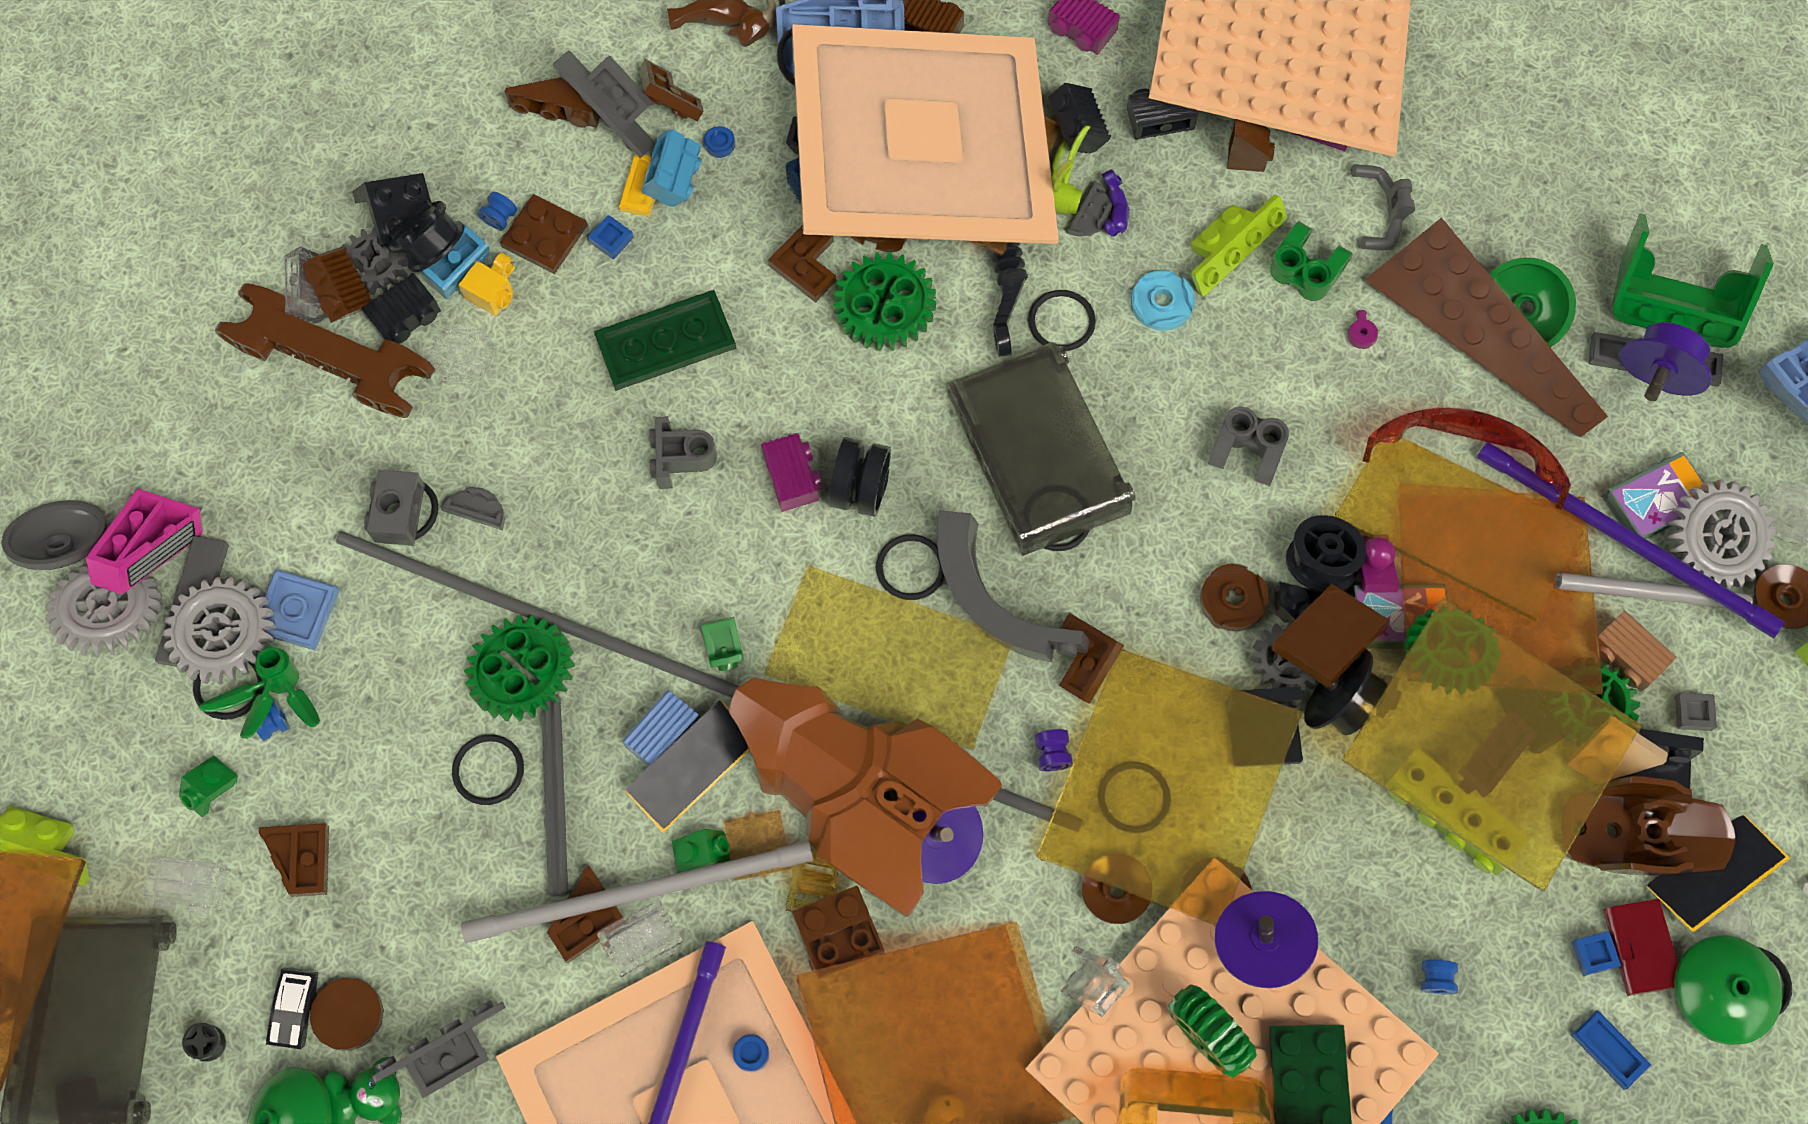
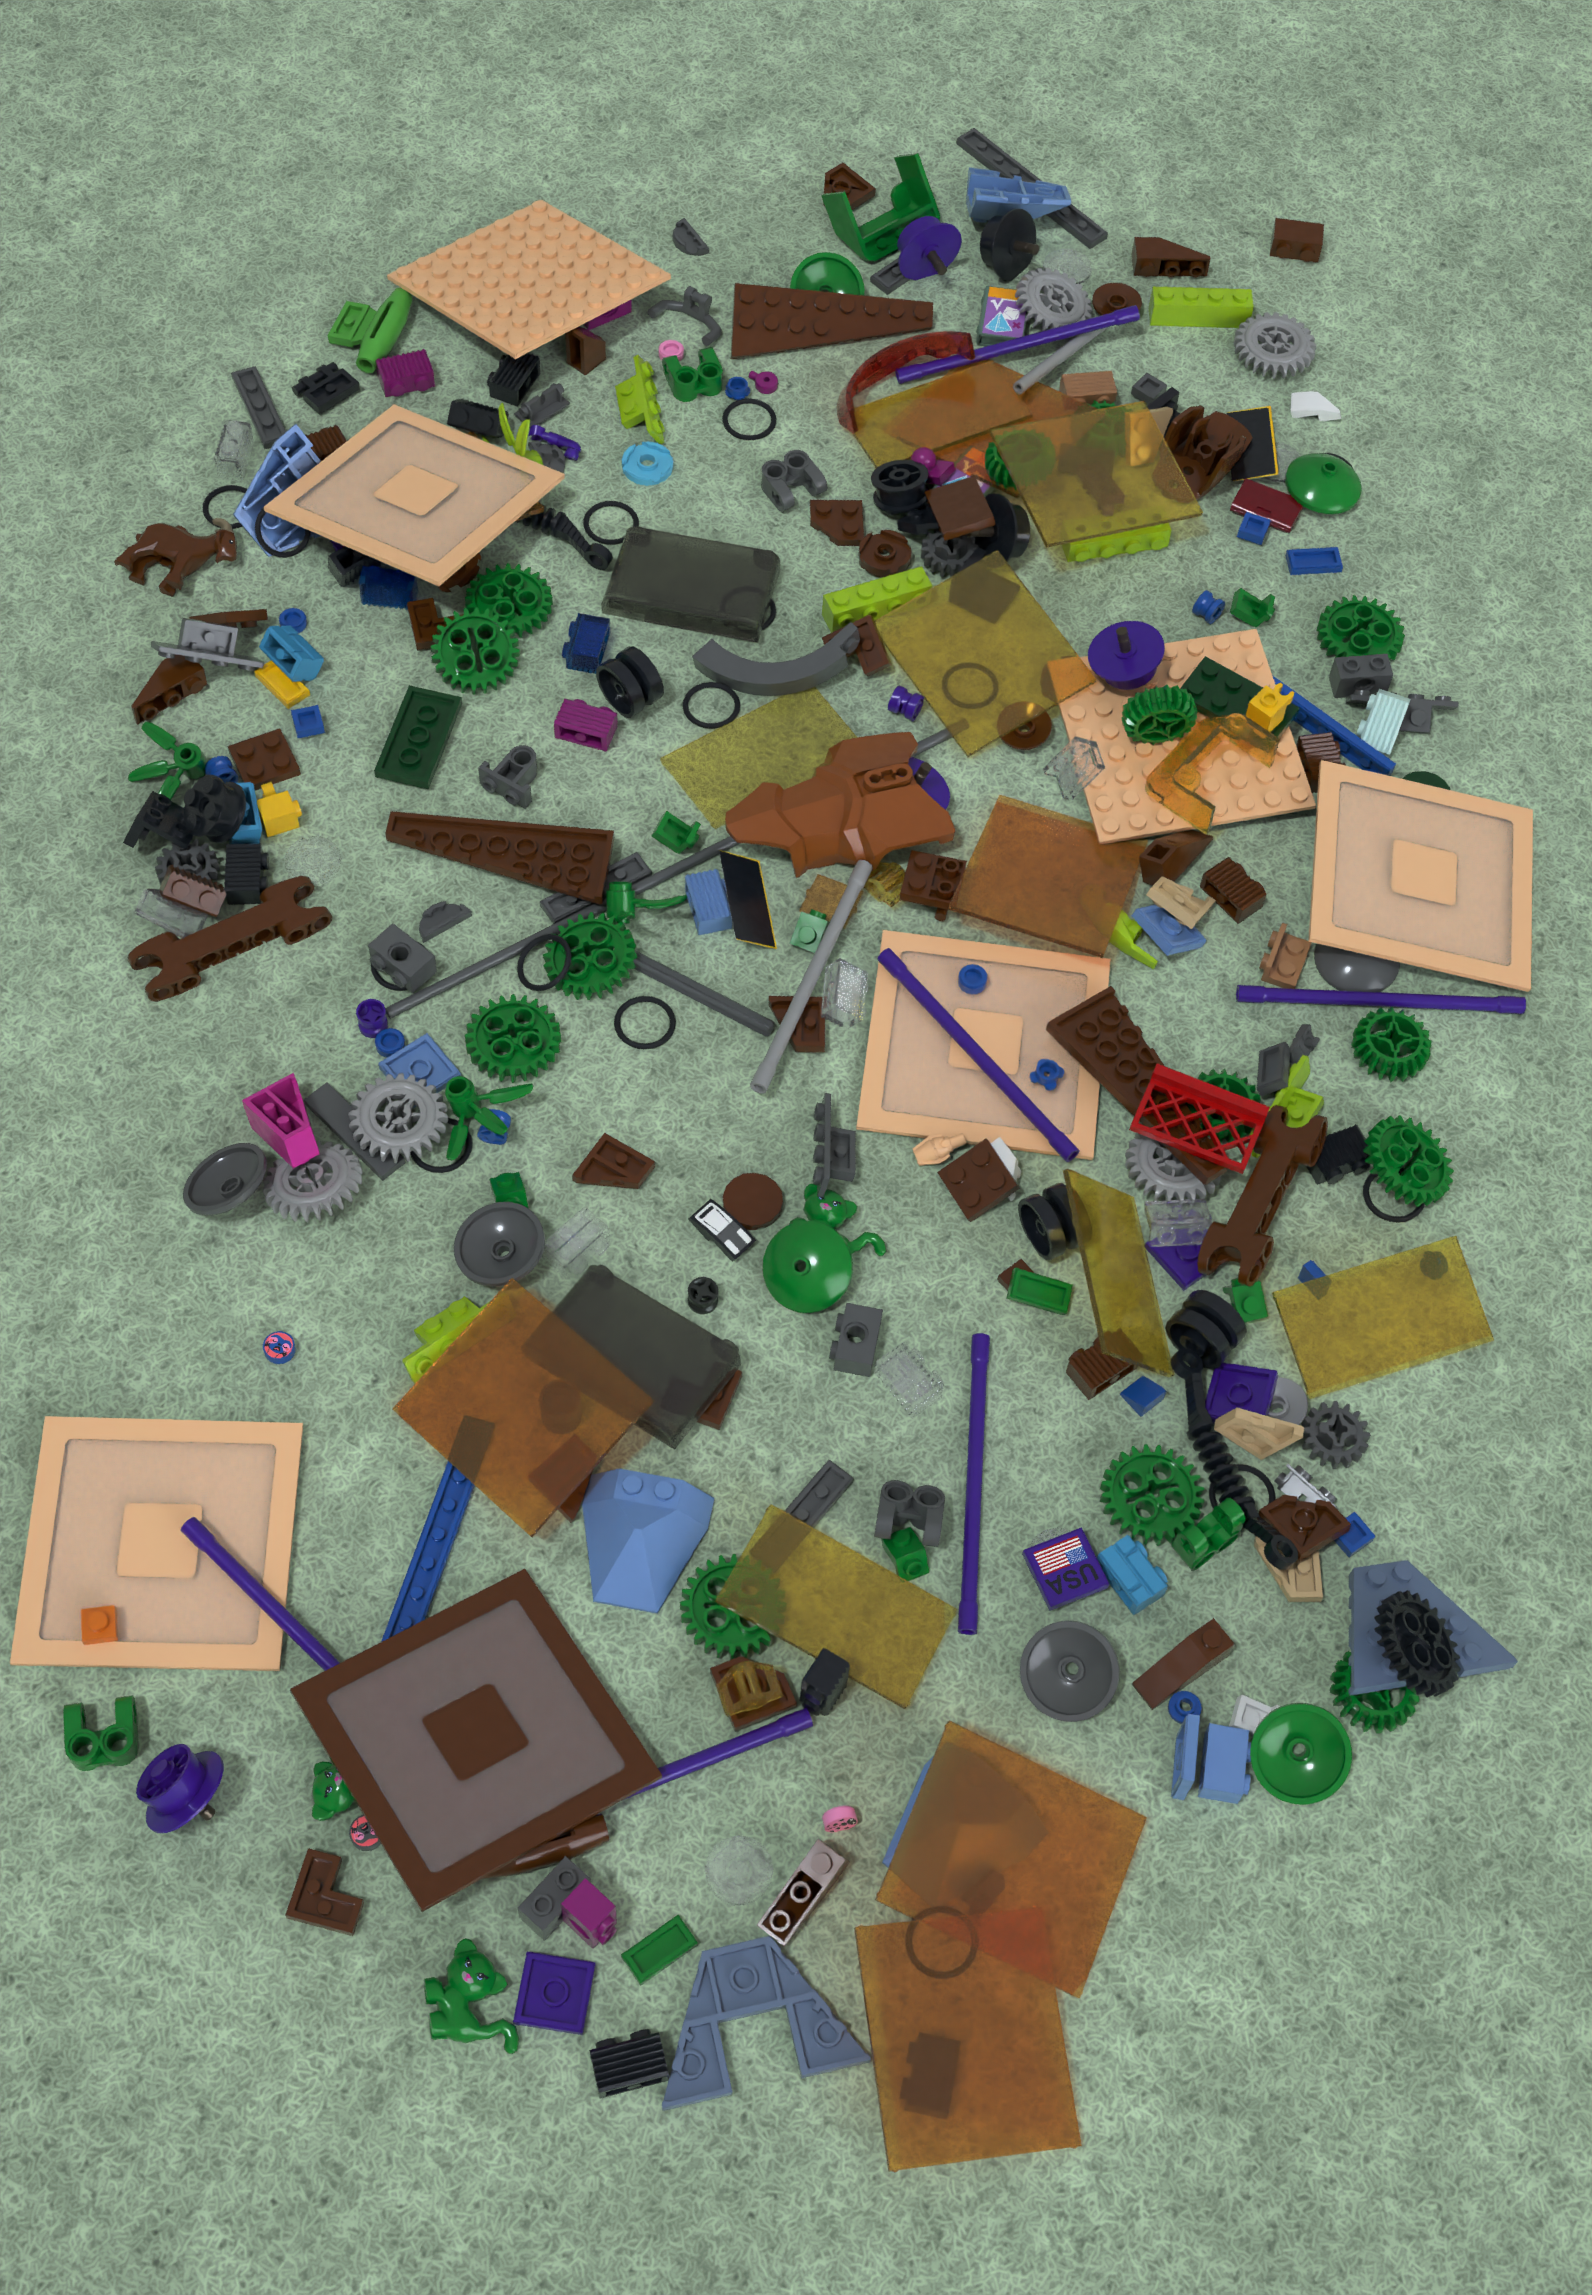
camera: 60 degrees left, 10 degrees down
(120, 807) = (489, 1234): none -> dark grey dish
(308, 562) = (389, 1041): none -> blue tile
(311, 524) = (371, 1017): none -> dark purple wheel
(359, 689) = (507, 1018): none -> green gear
(474, 659) = (524, 981): none -> black tyre
(479, 172) = (187, 758): none -> green plant
(594, 659) = (622, 902): none -> green plant
(602, 542) = (544, 855): none -> reddish brown wing
(610, 616) = (626, 870): none -> dark grey tile
(818, 331) = (450, 655): none -> green gear
(889, 404) = (587, 643): none -> clear blue brick
(1148, 161) = (543, 407): none -> dark grey hinge
(1160, 631) = (873, 597): none -> lime brick
(1242, 524) = (838, 520): none -> reddish brown plate
(1297, 378) = (749, 401): none -> black tyre
(1324, 221) = (671, 348): none -> bright pink tile
(1328, 306) = (737, 388): none -> blue plate
(1478, 1025) = (1252, 609): none -> green bracket
(1483, 134) = (688, 240): none -> dark grey tile
(1688, 228) = (845, 179): none -> reddish brown plate
(1756, 435) = (1009, 243): none -> black piece

